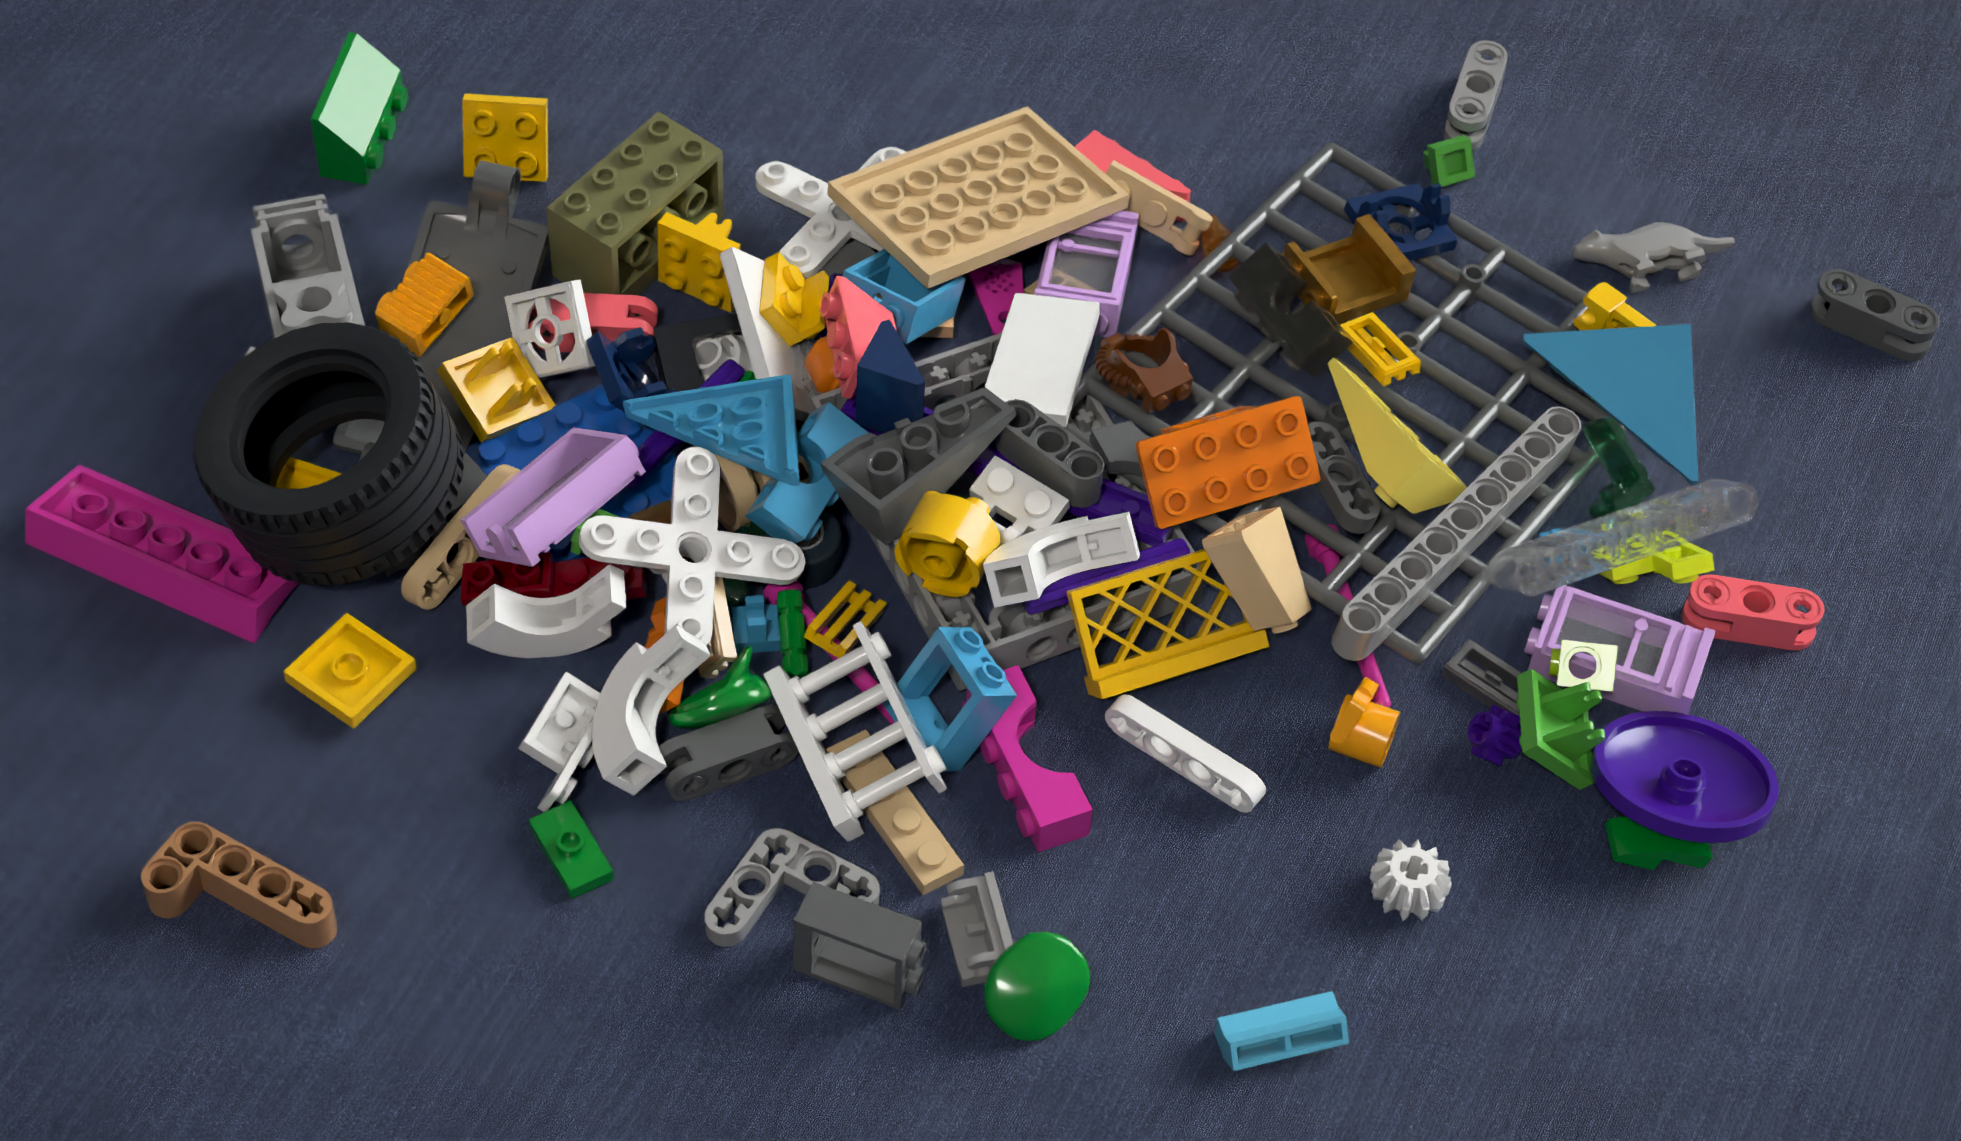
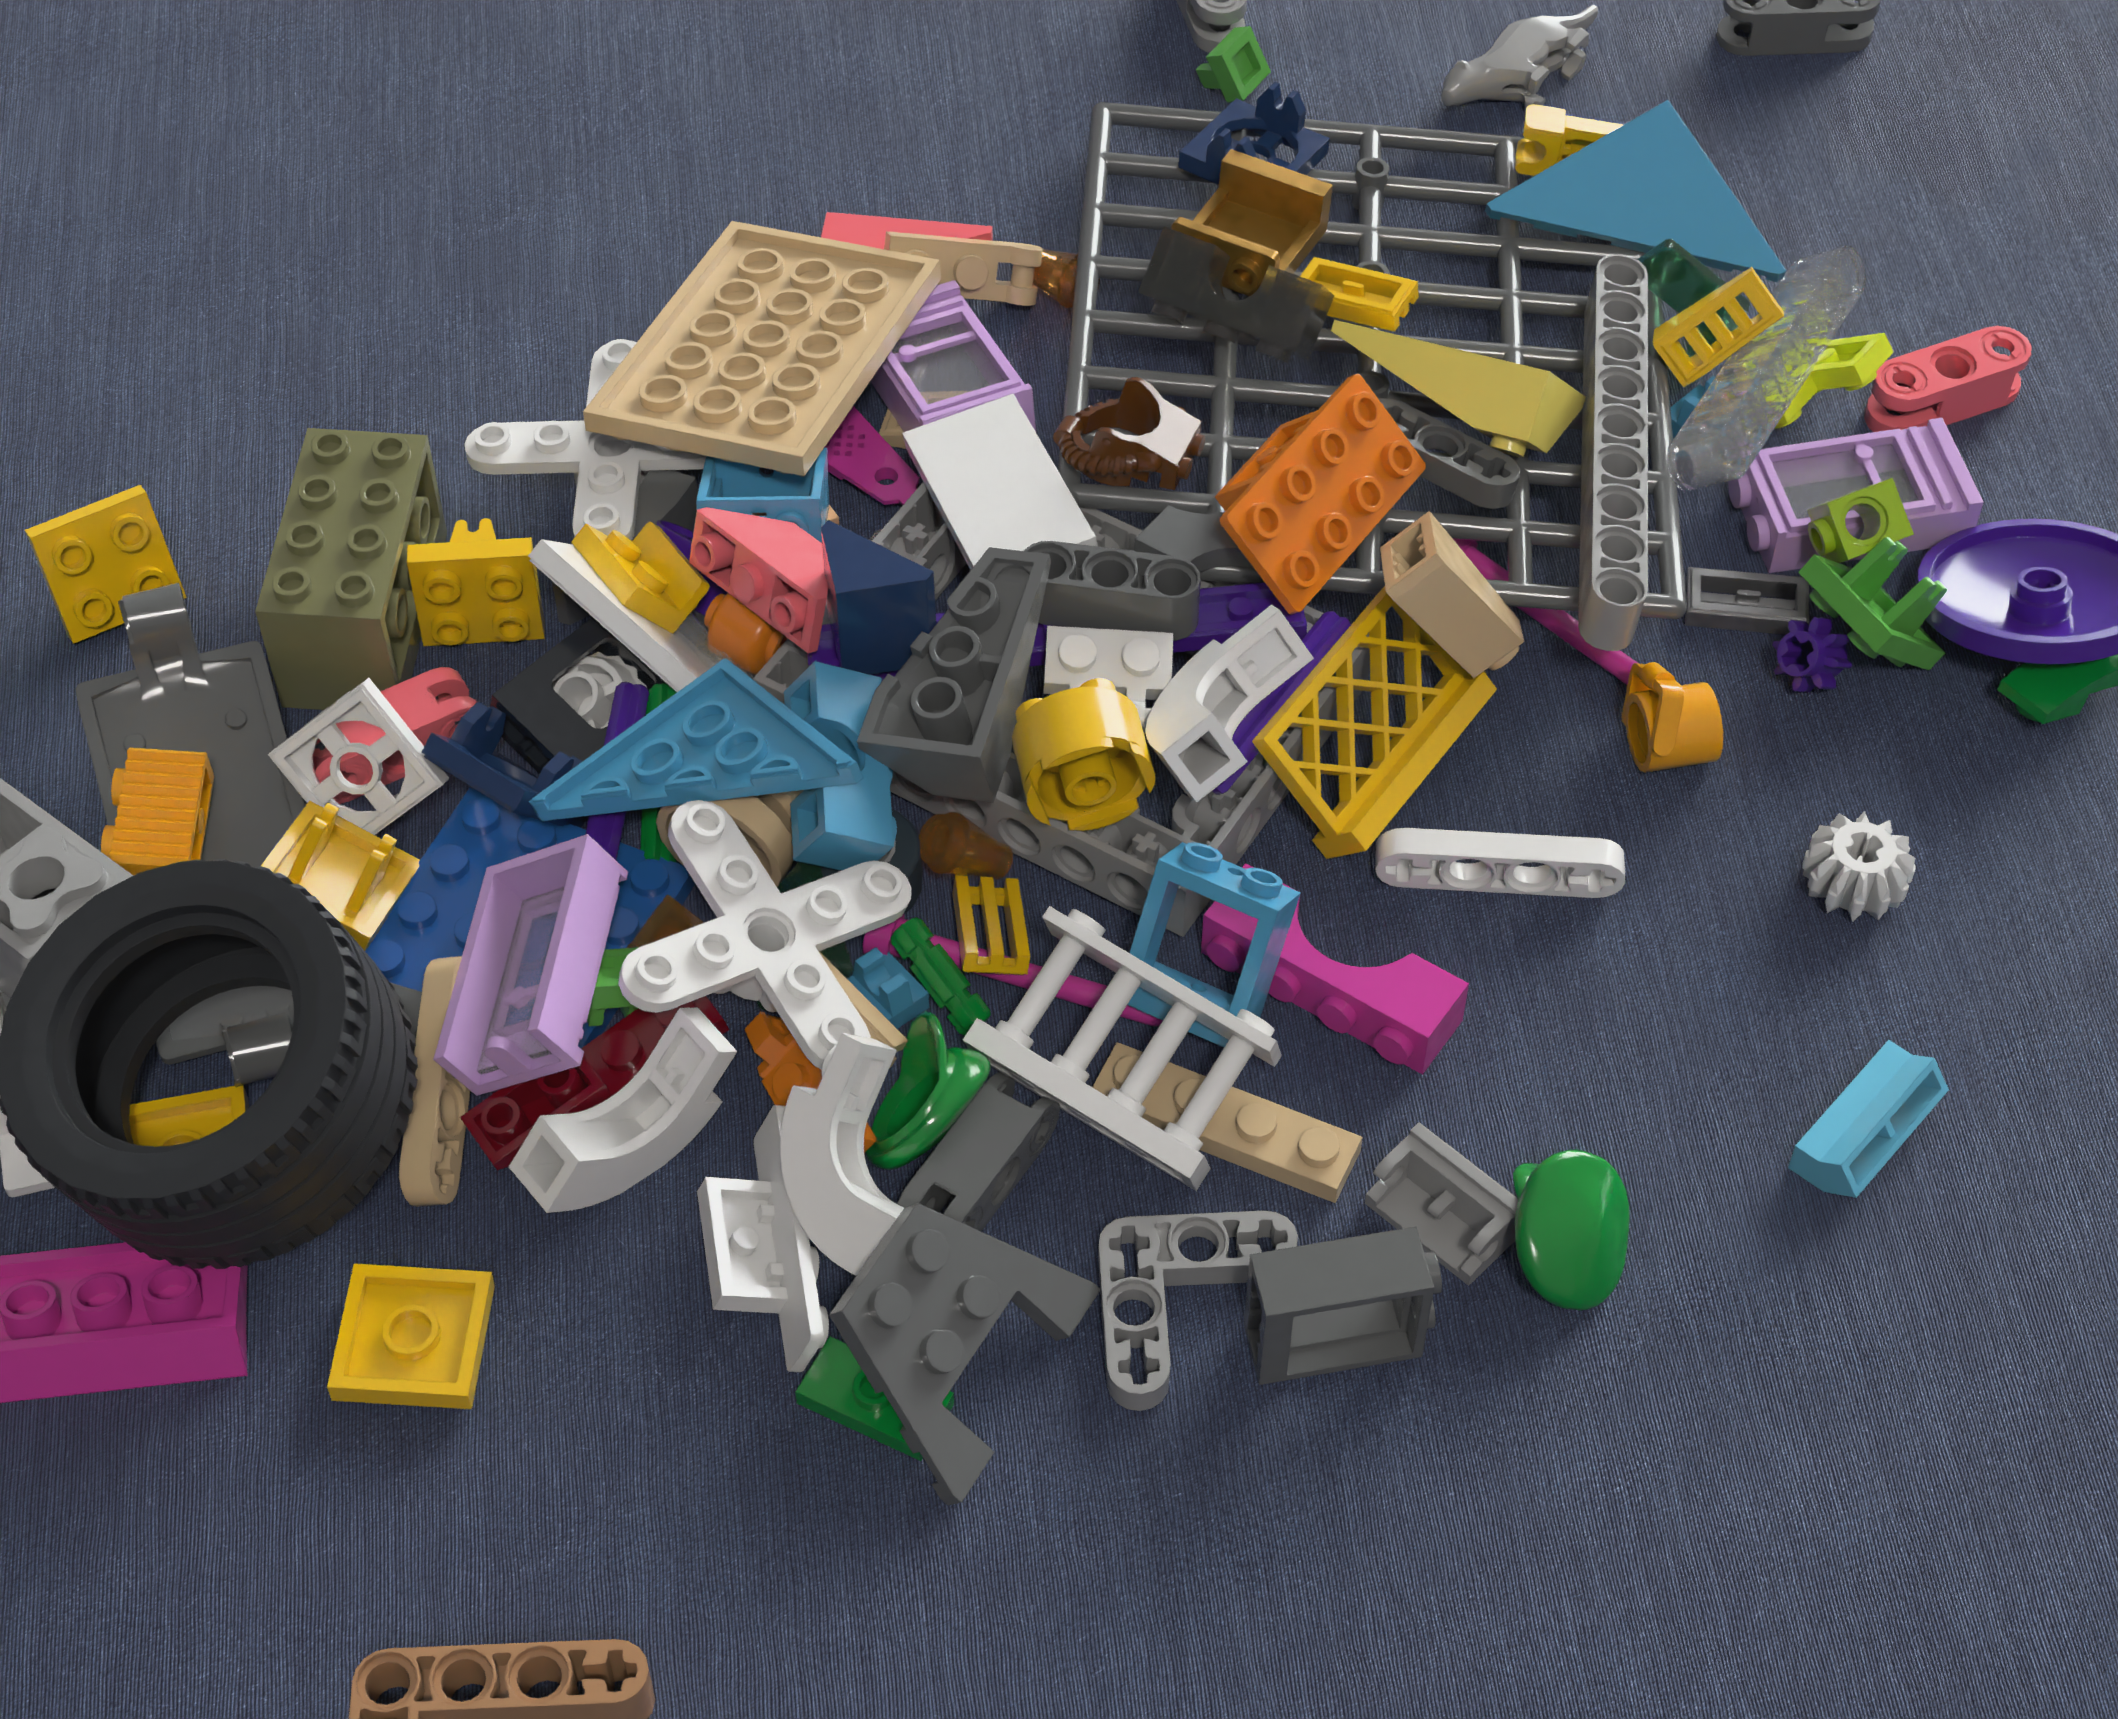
camera: 30 degrees left, 0 degrees up
(620, 812) = (926, 1311): none -> dark grey wing
(861, 564) = (960, 847): none -> clear orange cone
(1576, 497) = (1708, 356): none -> yellow slope

